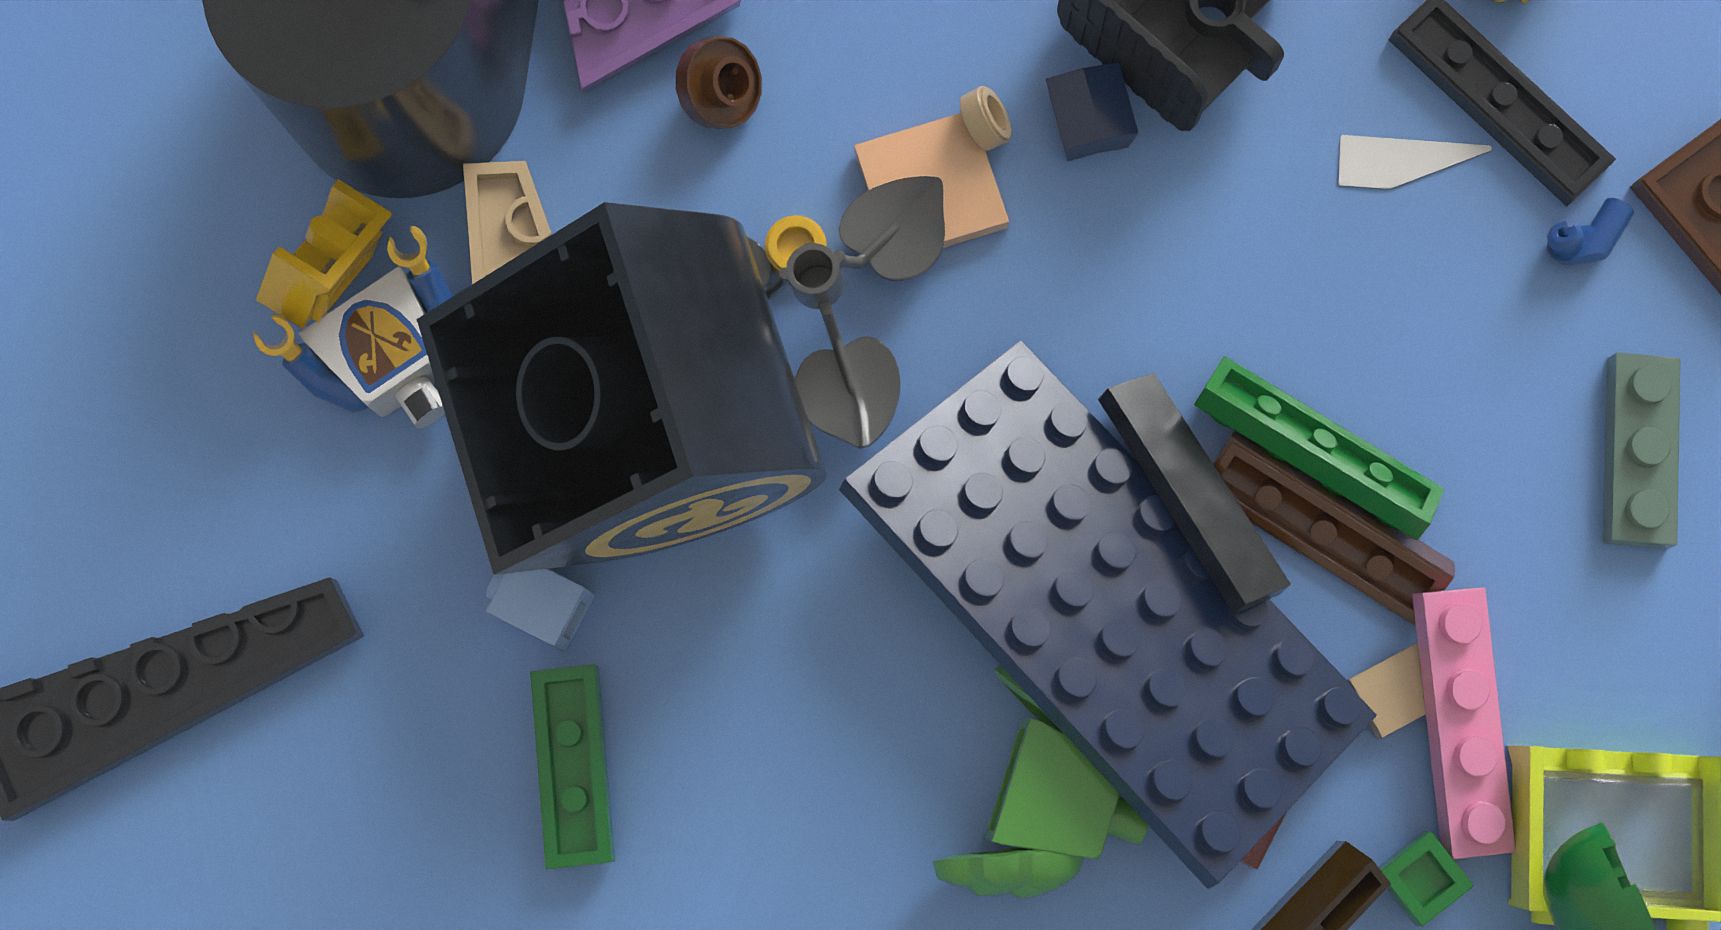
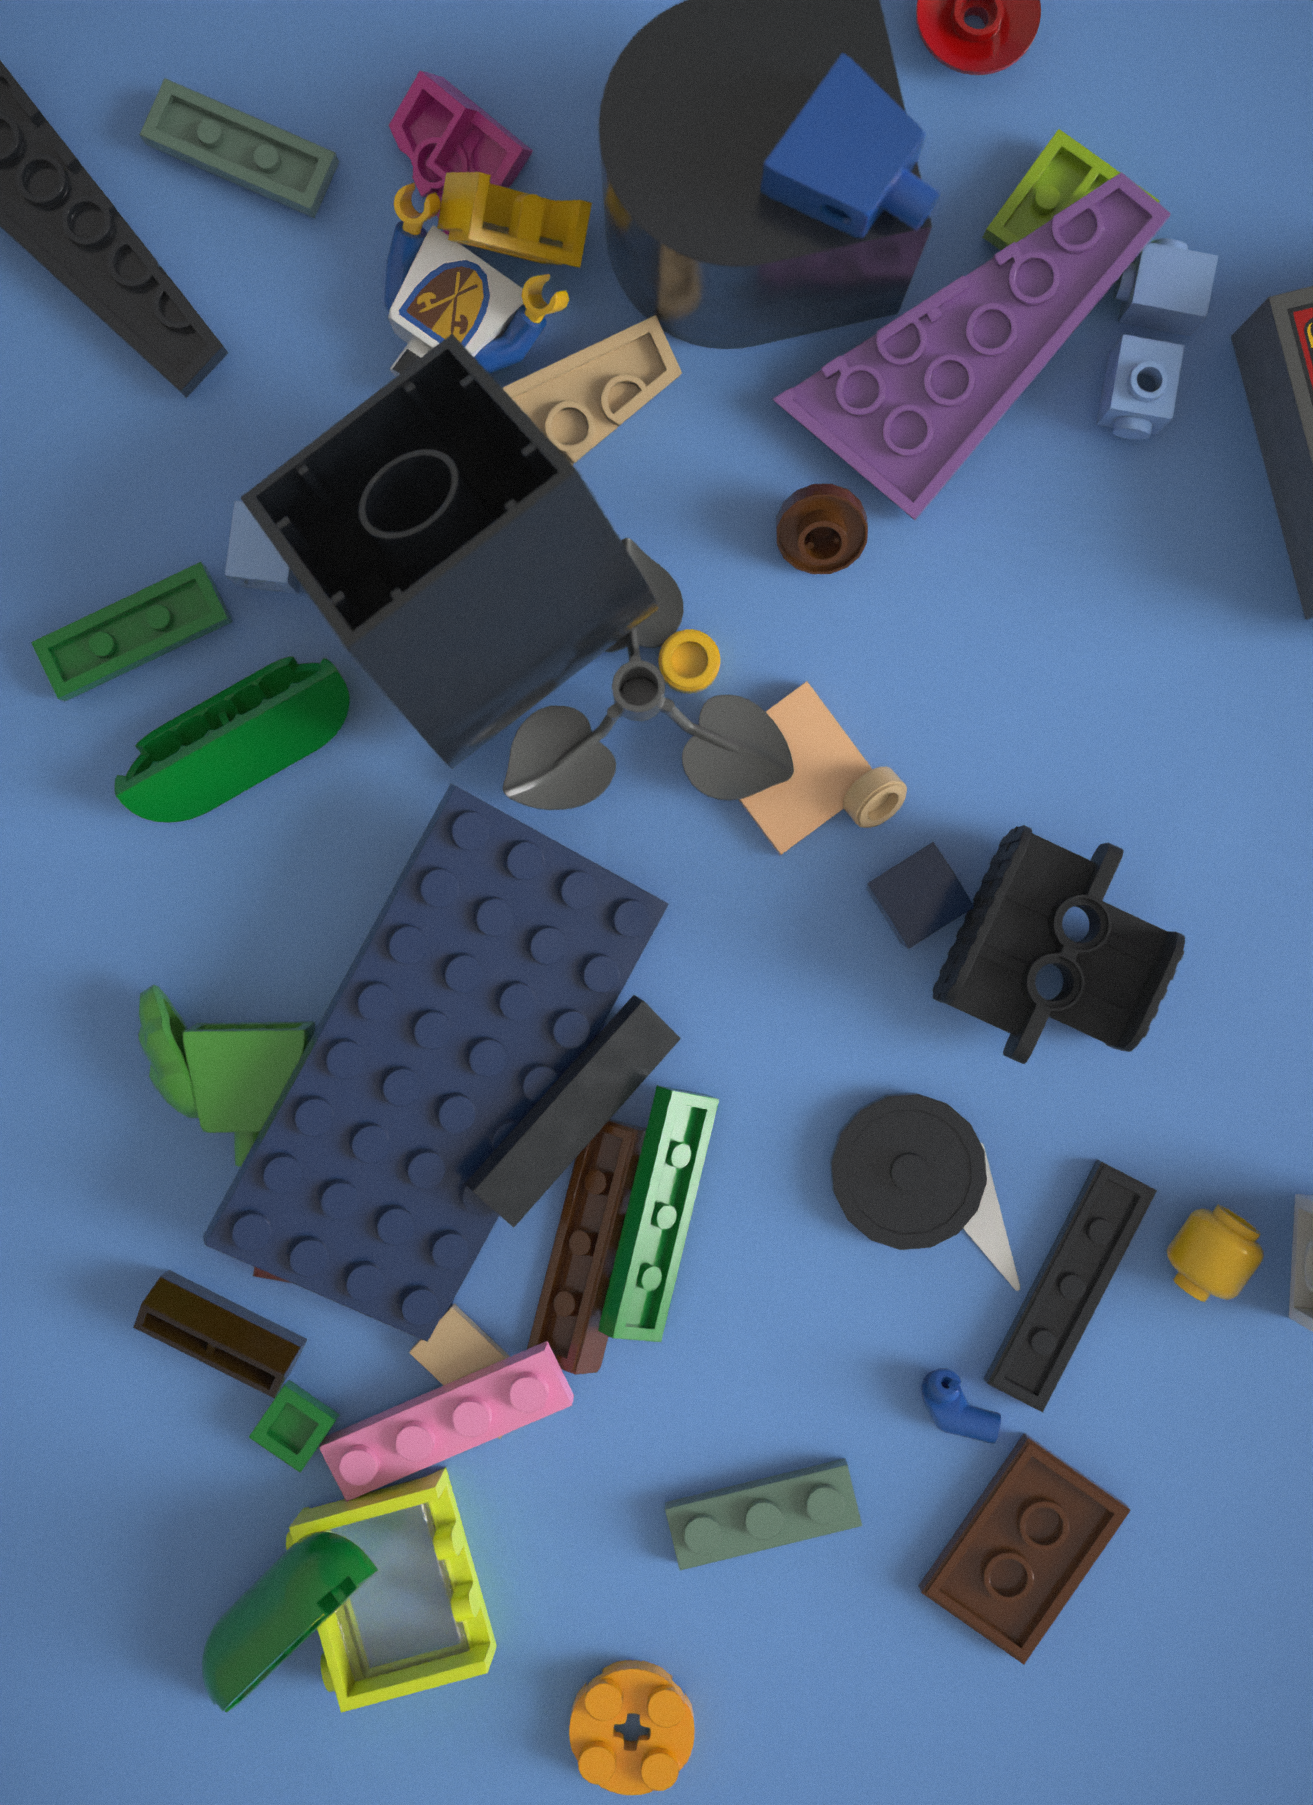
camera: 60 degrees right, 10 degrees up
(147, 499) = (239, 148): none -> sand green plate
(219, 301) = (452, 134): none -> dark pink slope
(716, 698) = (234, 740): none -> green brick
(1347, 207) = (908, 1171): none -> black wheel

